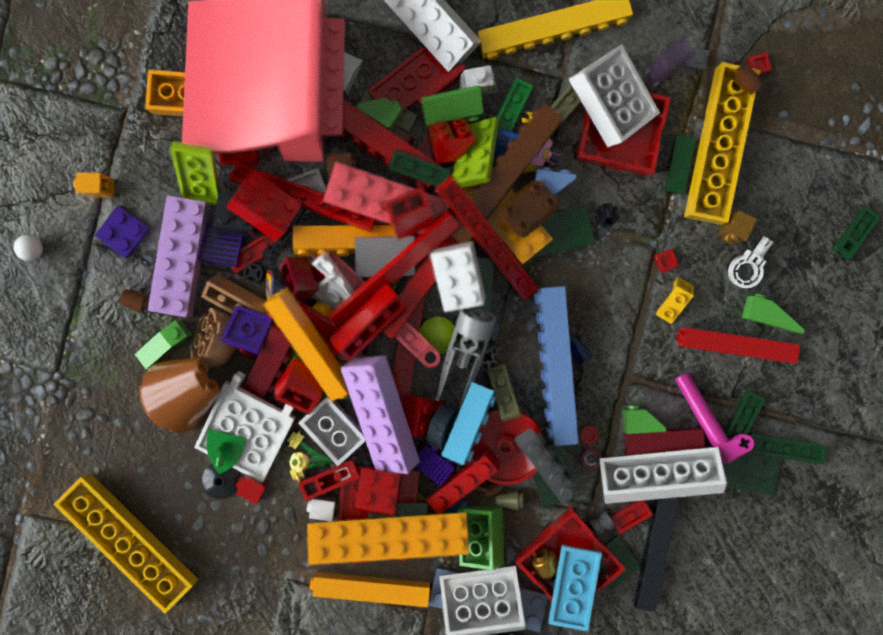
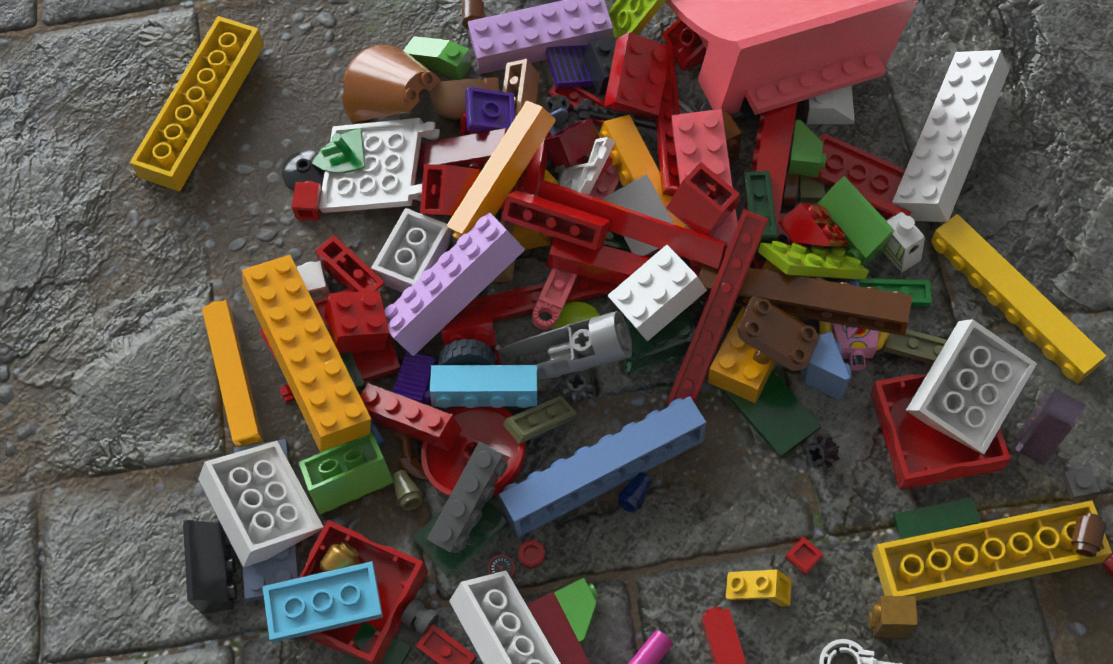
camera: 70 degrees right, 25 degrees down
(299, 461) = (360, 220): light yellow plant -> none

